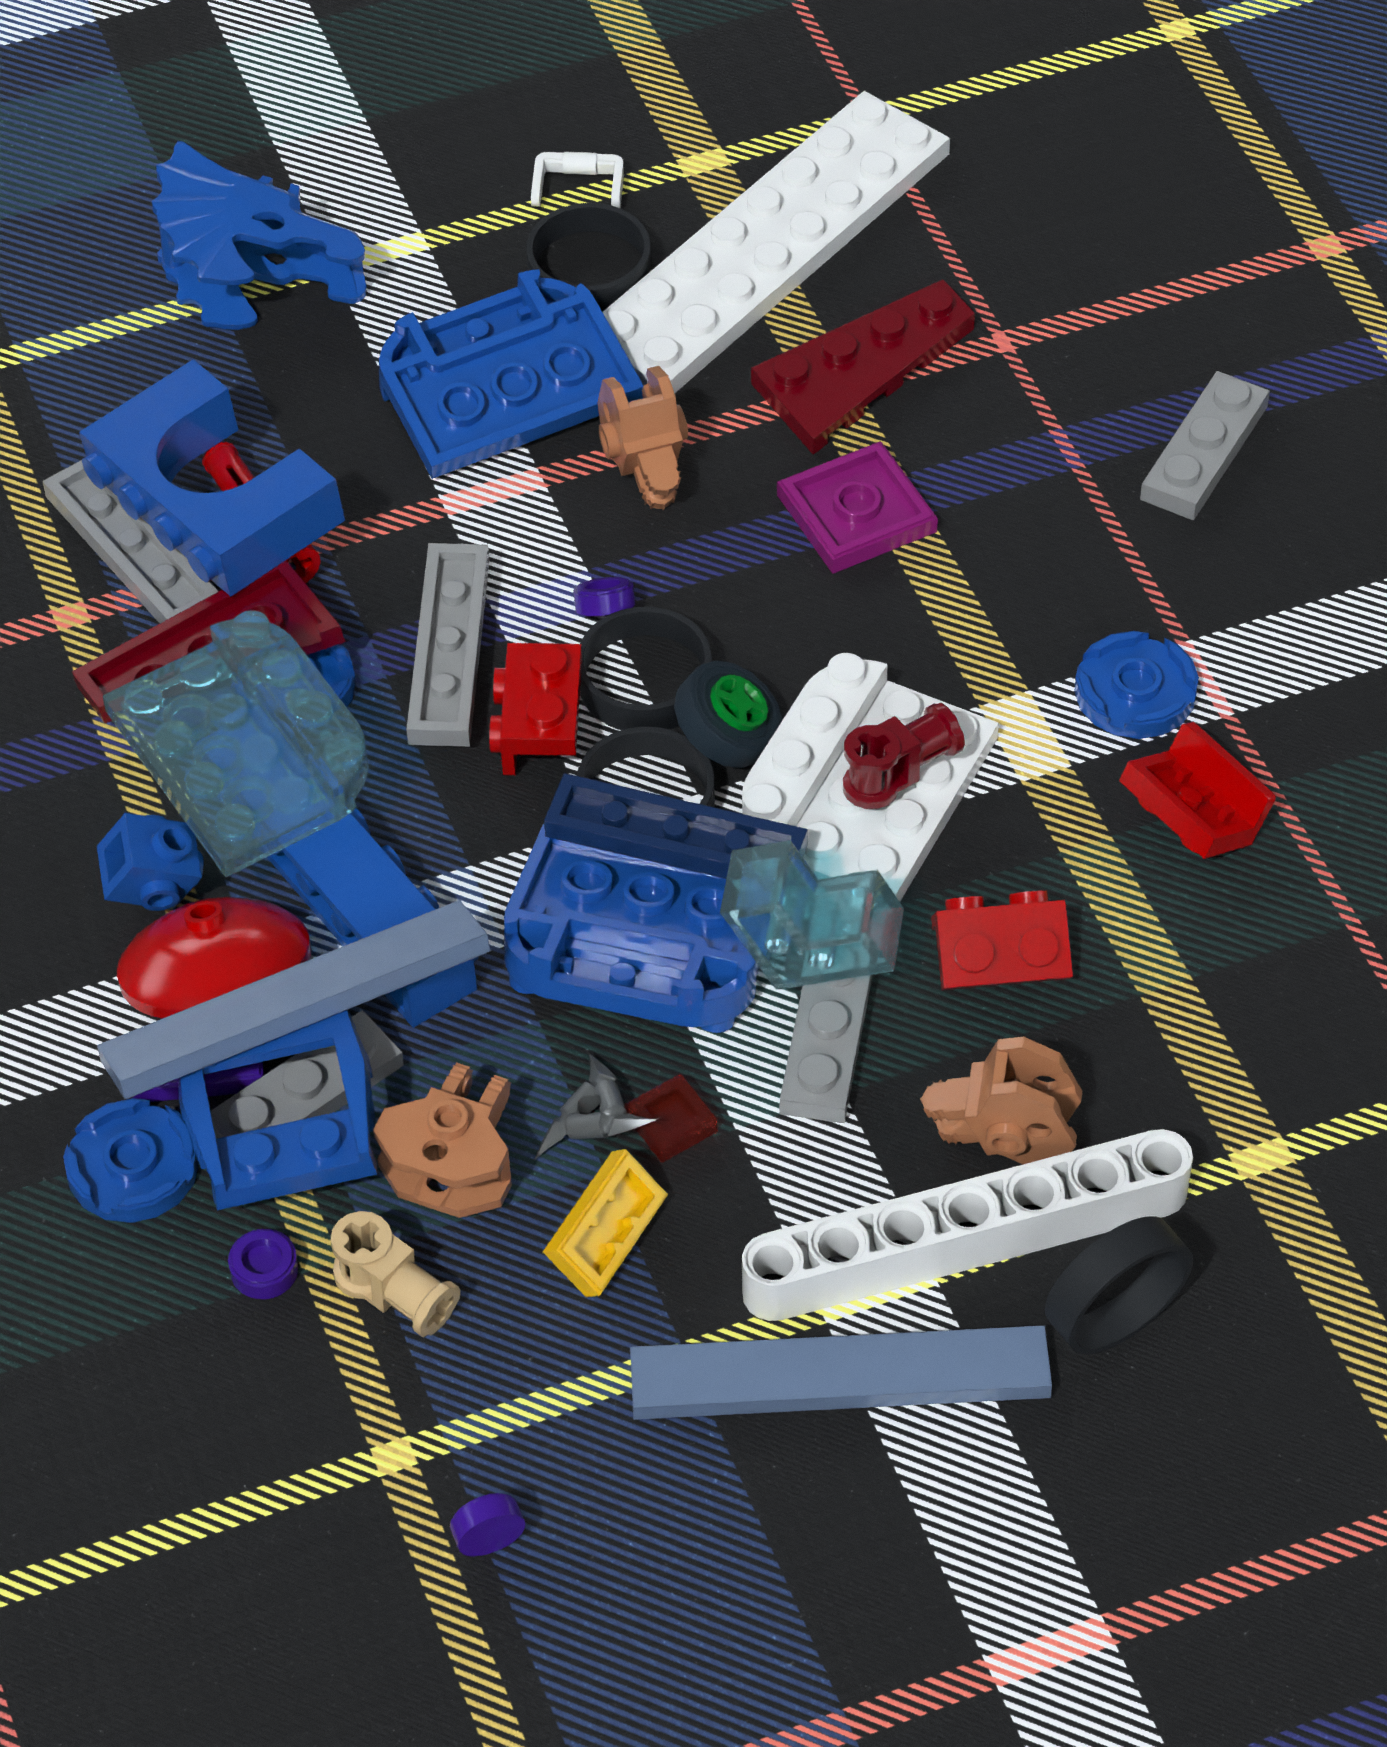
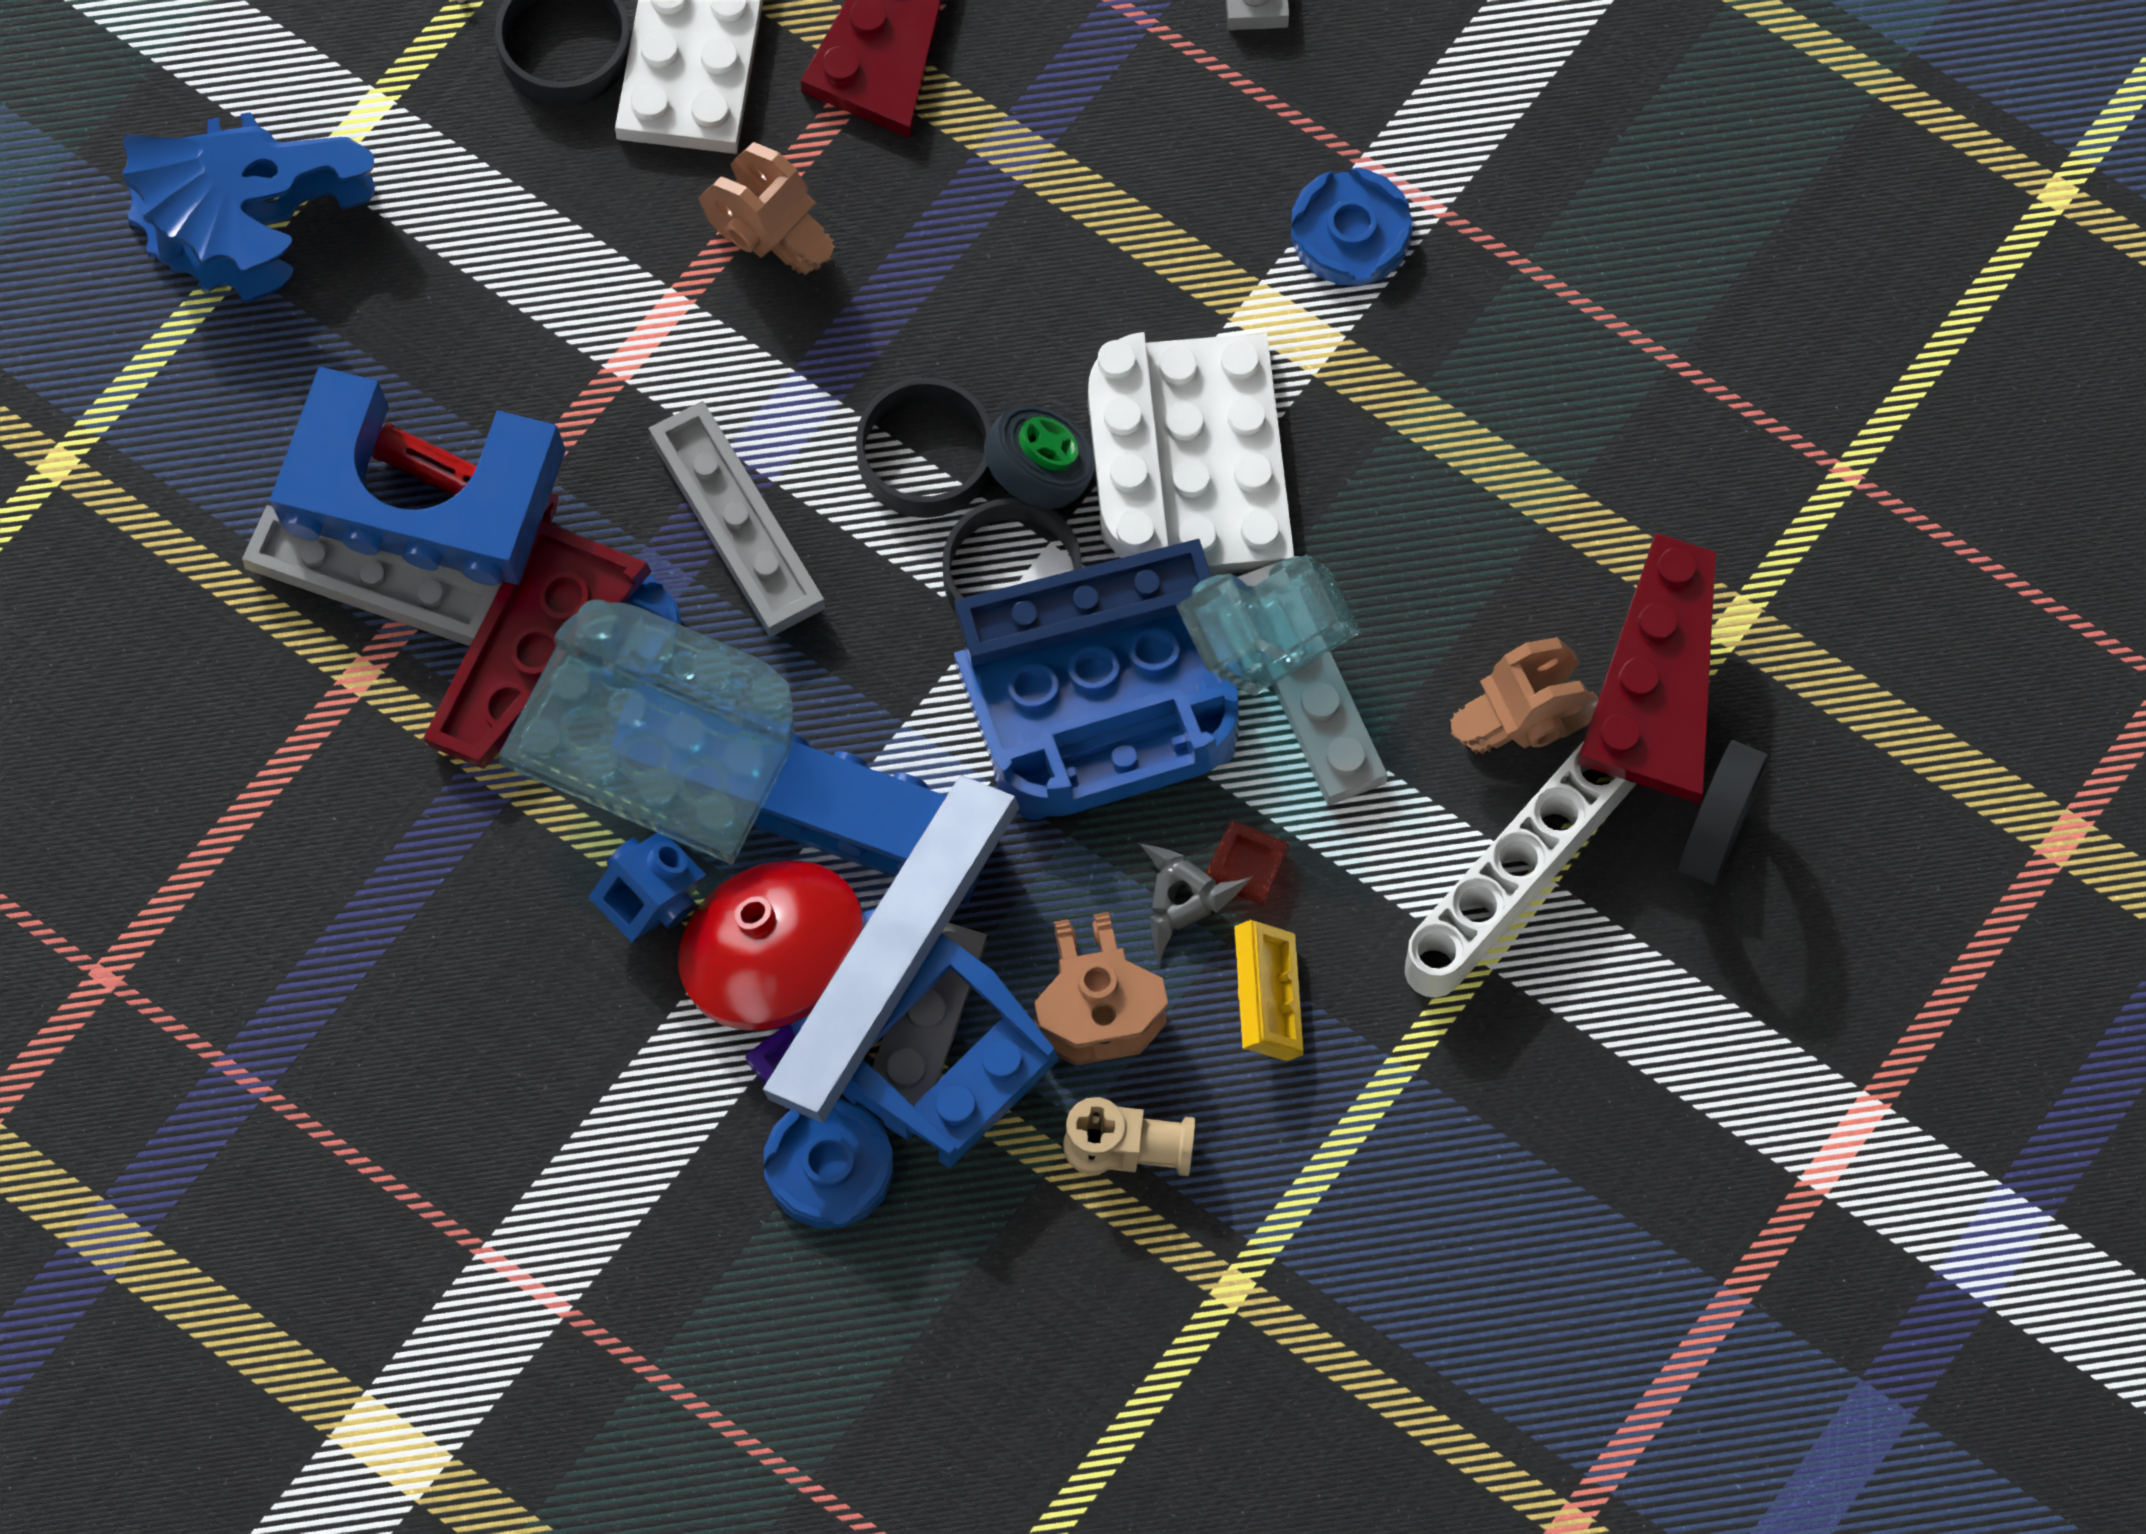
camera: 35 degrees left, 15 degrees up
(263, 1264) = (1009, 1189): dark purple tile -> none
(487, 1524) = (1360, 1303): dark purple tile -> none
(501, 371) = (580, 207): blue plate -> none
(538, 702) = (865, 538): red bracket -> none
(603, 596) = (840, 395): dark purple tile -> none
(840, 1372) = (1536, 1009): sand blue tile -> none
(857, 507) = (990, 175): magenta tile -> none
(894, 754) = (1219, 422): dark red connector -> none
(1002, 942) = (1410, 544): red bracket -> none
(1139, 1138) = (1657, 685): none -> dark red wing
(1200, 793) = (1482, 310): red bracket -> none

